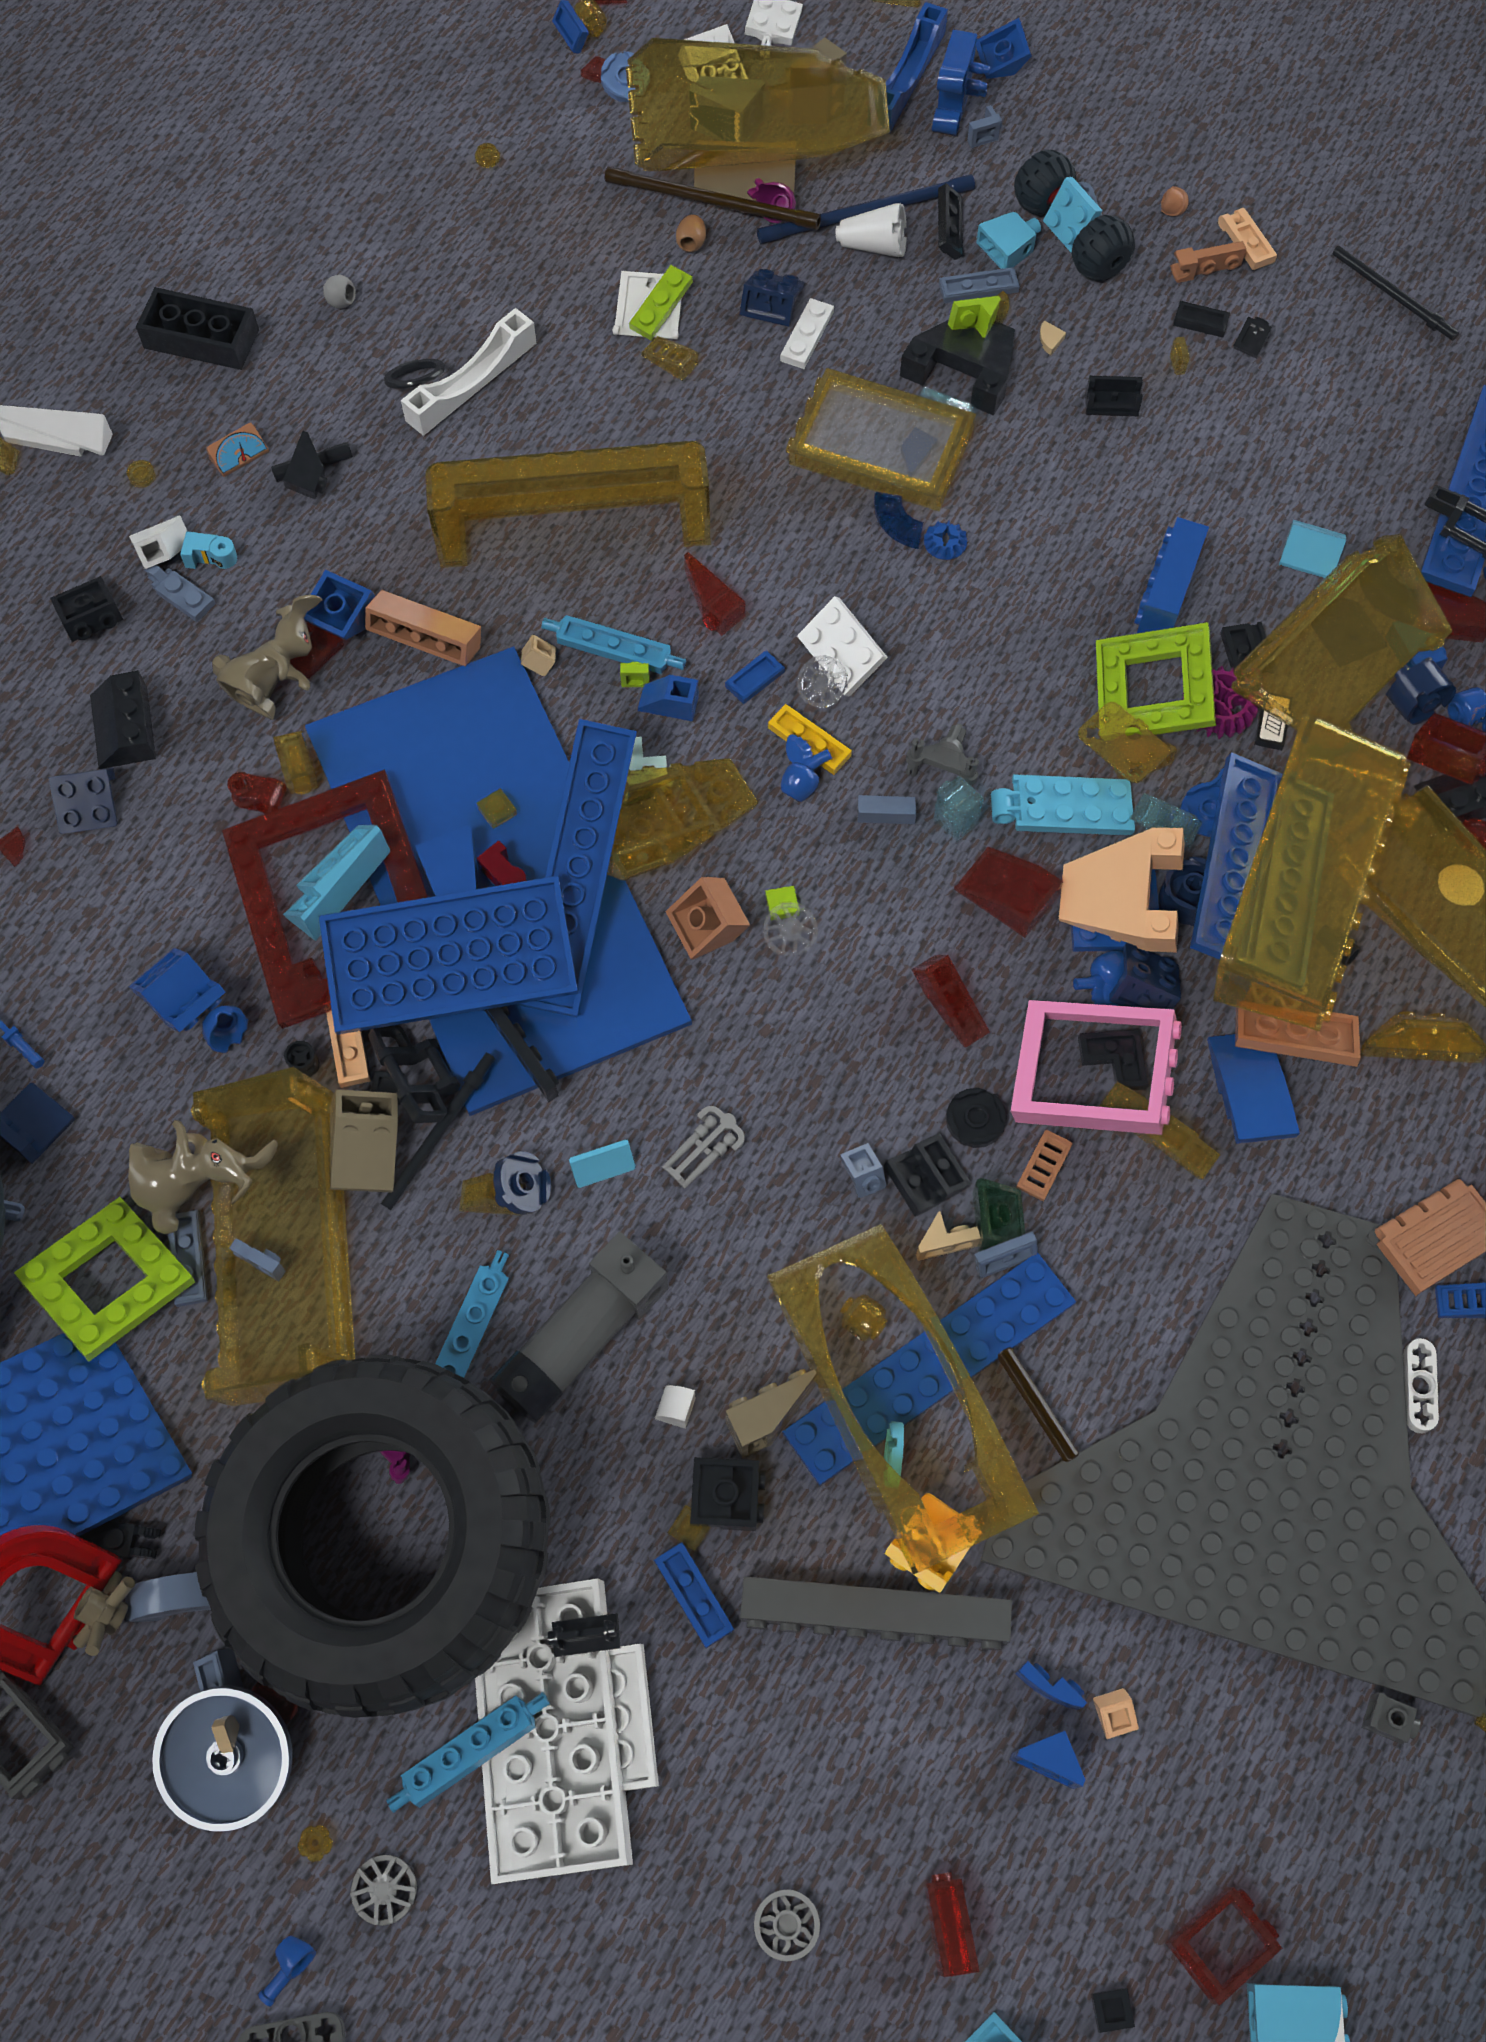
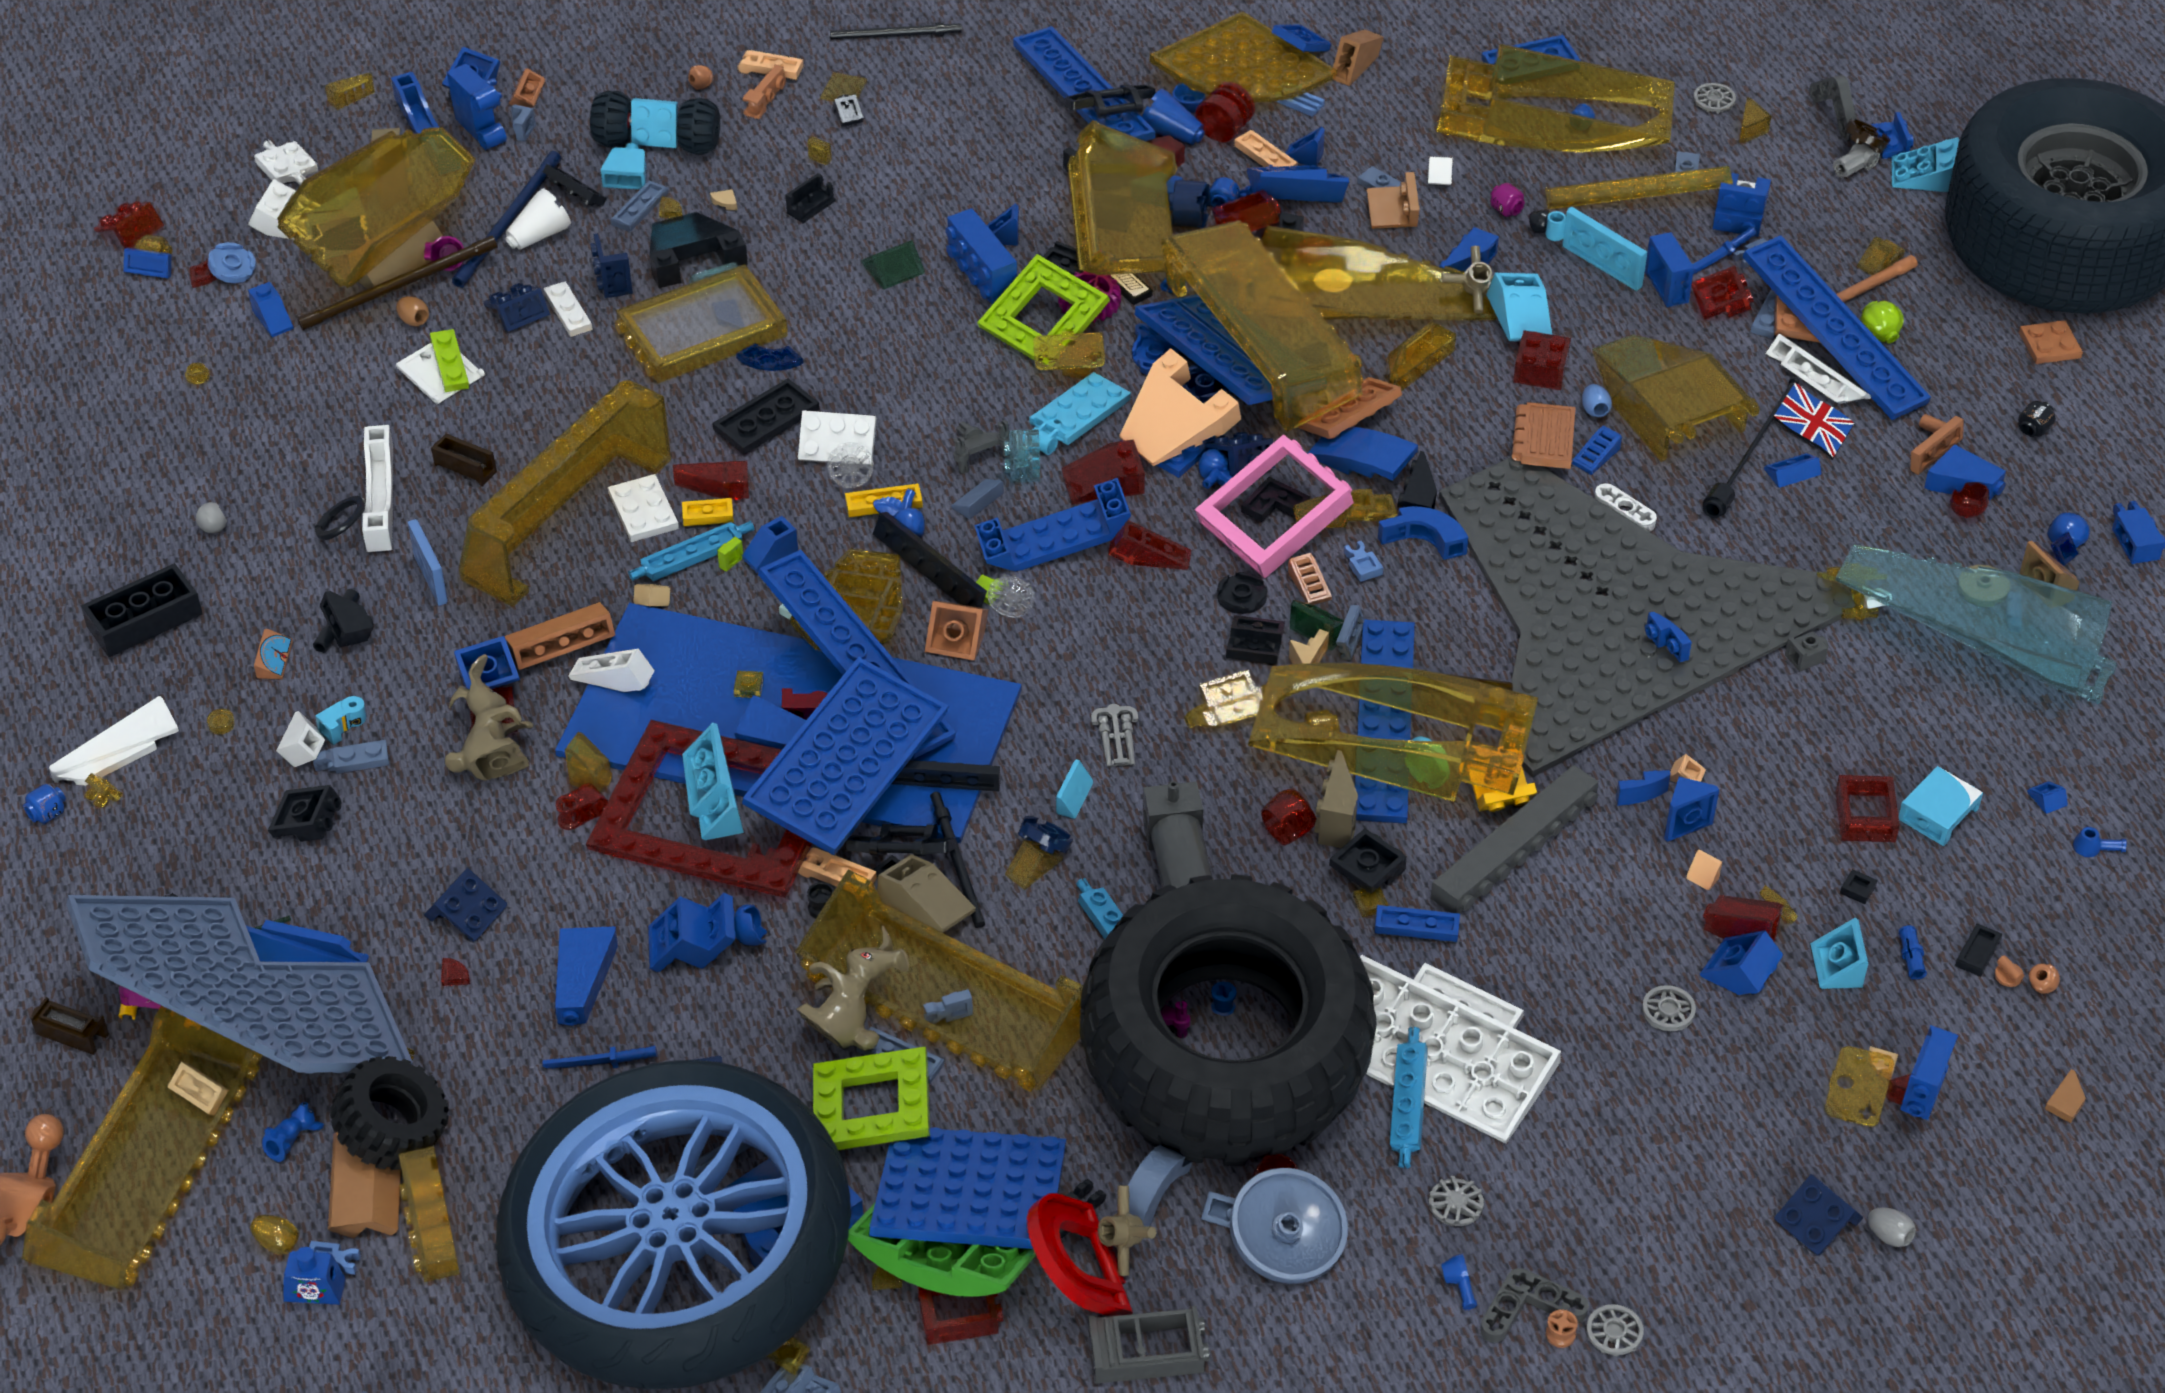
camera: 50 degrees left, 20 degrees down
(76, 939) = (581, 970): none -> blue slope
(122, 721) = (427, 846): black slope -> none
(225, 1733) = (1277, 1200): tan tile -> none
(305, 1844) = (1394, 1212): clear yellow plate -> none
(410, 477) = (427, 562): none -> medium blue tile
(416, 699) = (615, 670): none -> white slope
(561, 402) = (464, 458): none -> dark brown window
(585, 1635) = (1395, 978): black hinge -> none
(598, 142) = (270, 309): none -> blue slope
(633, 569) = (643, 508): none -> white plate
(669, 619) = (707, 512): none -> yellow plate
(673, 366) = (504, 384): clear yellow slope -> none
(676, 1405) = (1283, 853): white brick -> none
(724, 1374) = (1288, 816): none -> clear red piece
(754, 677) = (802, 499): blue tile -> none
(765, 838) = (928, 561): none -> black plate
(822, 572) = (765, 416): none -> black plate
(827, 1212) = (1226, 701): none -> clear yellow plate
(864, 1170) = (1219, 662): sand blue bracket -> none
(867, 325) = (612, 270): none -> dark blue bracket
(888, 904) = (1056, 533): none -> blue slope
(900, 1962) = (1743, 962): none -> blue slope
(934, 543) = (814, 351): blue gear -> none
(974, 313) = (668, 215): lime slope -> none
(993, 1831) = (1704, 870): none -> light nougat slope
(999, 1951) = (1787, 913): none -> clear yellow tile
(1030, 100) = (527, 89): none -> nougat slope
(1102, 522) = (894, 265): none -> clear green slope
(1109, 1197) = (1363, 564): none -> medium blue plate
(1158, 814) = (1136, 368): clear light blue brick -> none
(1201, 319) = (802, 125): black tile -> none
(1214, 1218) = (1428, 525): none -> blue arch
(1234, 569) = (1006, 226): none -> blue slope
(1244, 1182) = (1420, 487): none -> black slope
(1269, 1559) = (1665, 633): none -> blue slope
(1282, 311) = (843, 84): none -> clear yellow piece
(1312, 549) = (1032, 187): medium azure slope -> none

